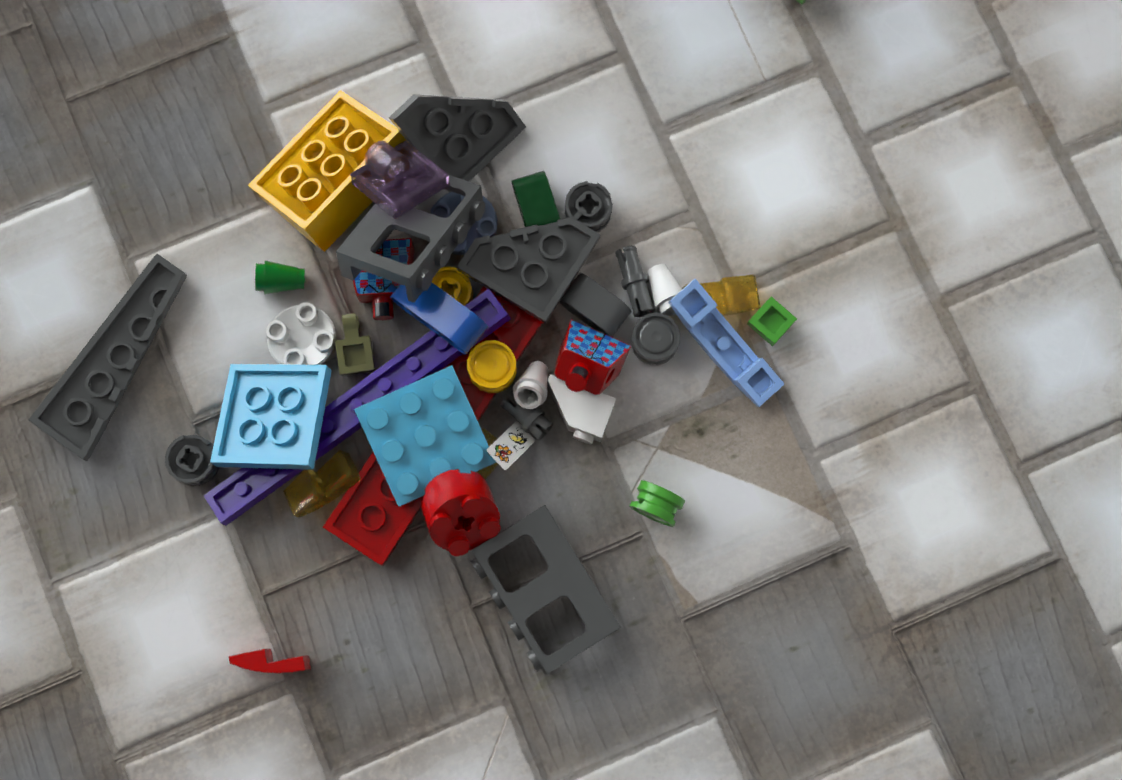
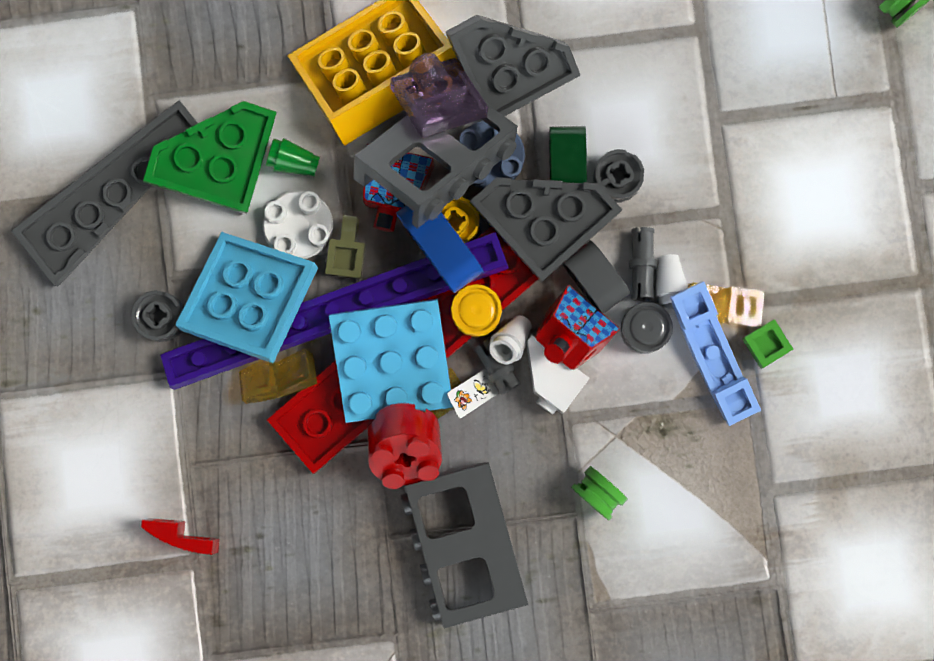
camera: 20 degrees right, 5 degrees up
(205, 296) = (215, 157): none -> green plate

